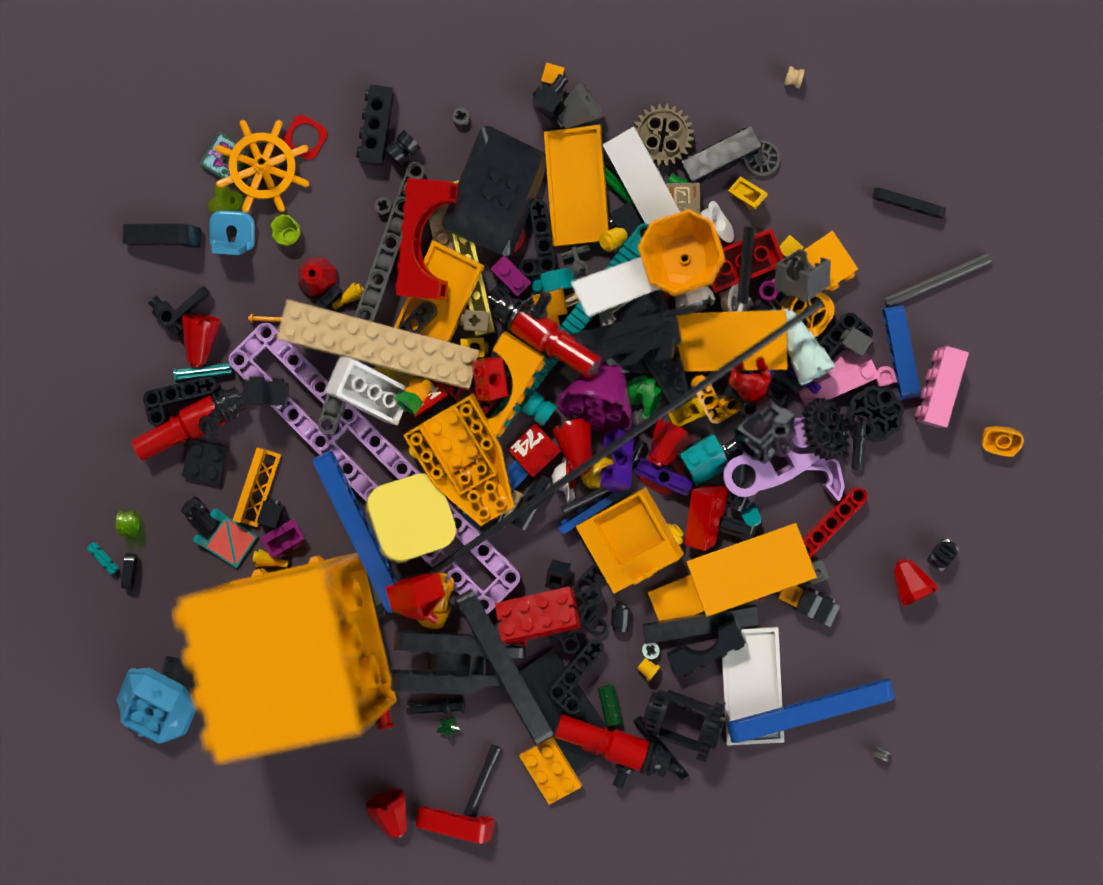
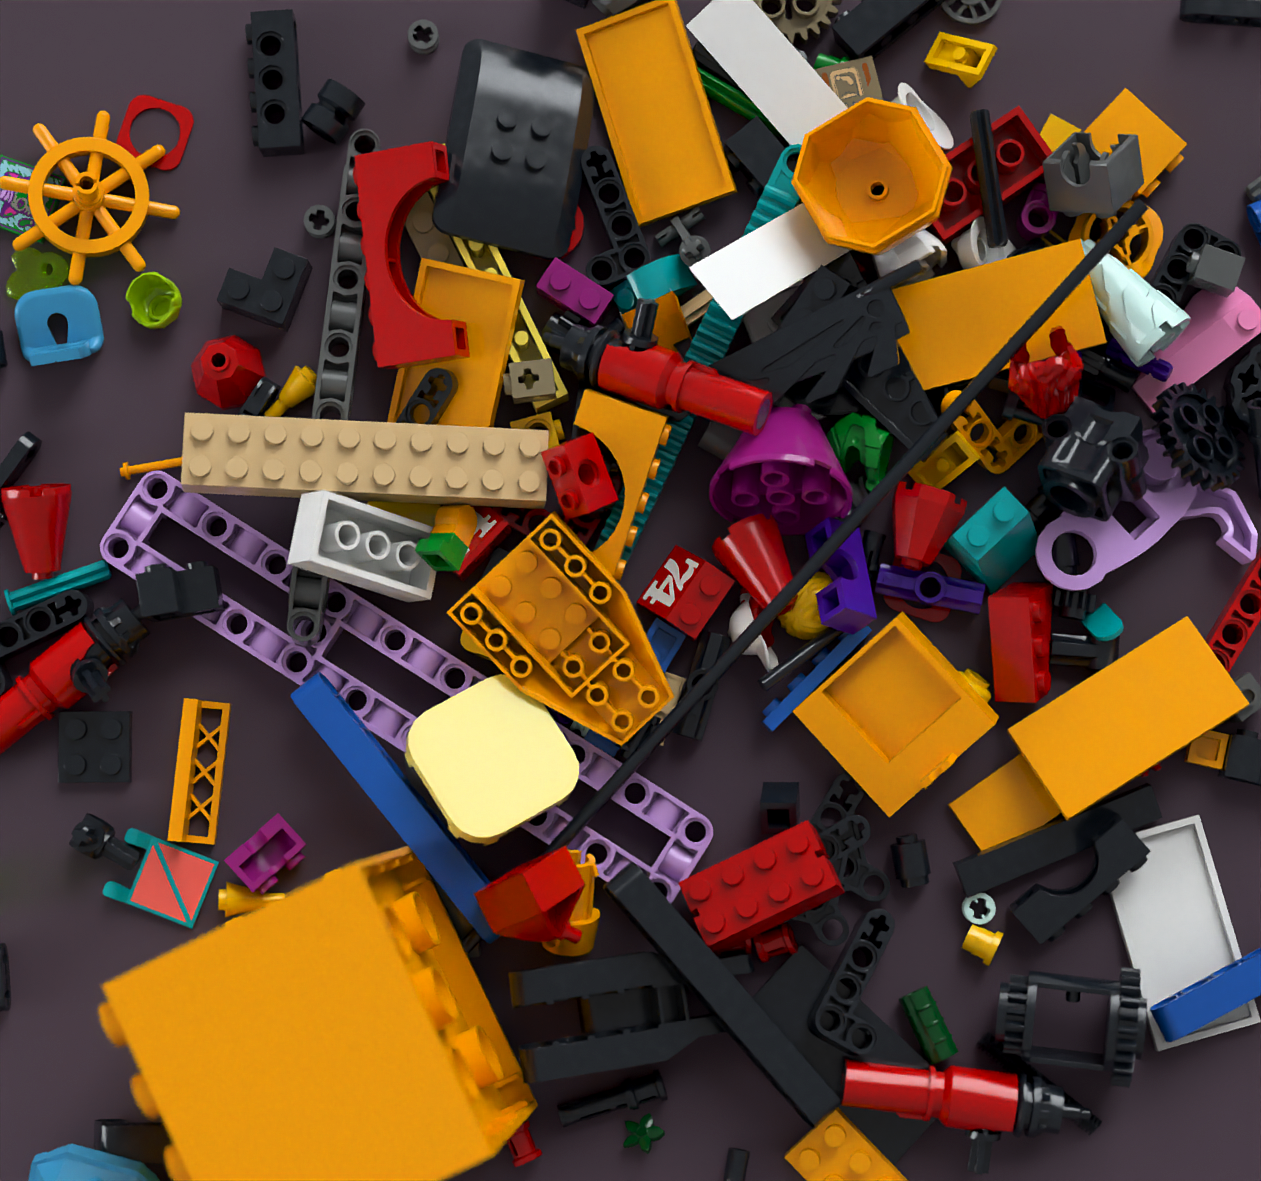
camera: 10 degrees left, 5 degrees down
(271, 513) = (234, 812): black brick -> none
(348, 242) = (273, 297): none -> black brick
(539, 408) = (677, 516): teal wheel -> none
(540, 644) = (775, 942): none -> red bush
(613, 238) = (742, 185): yellow brick -> none

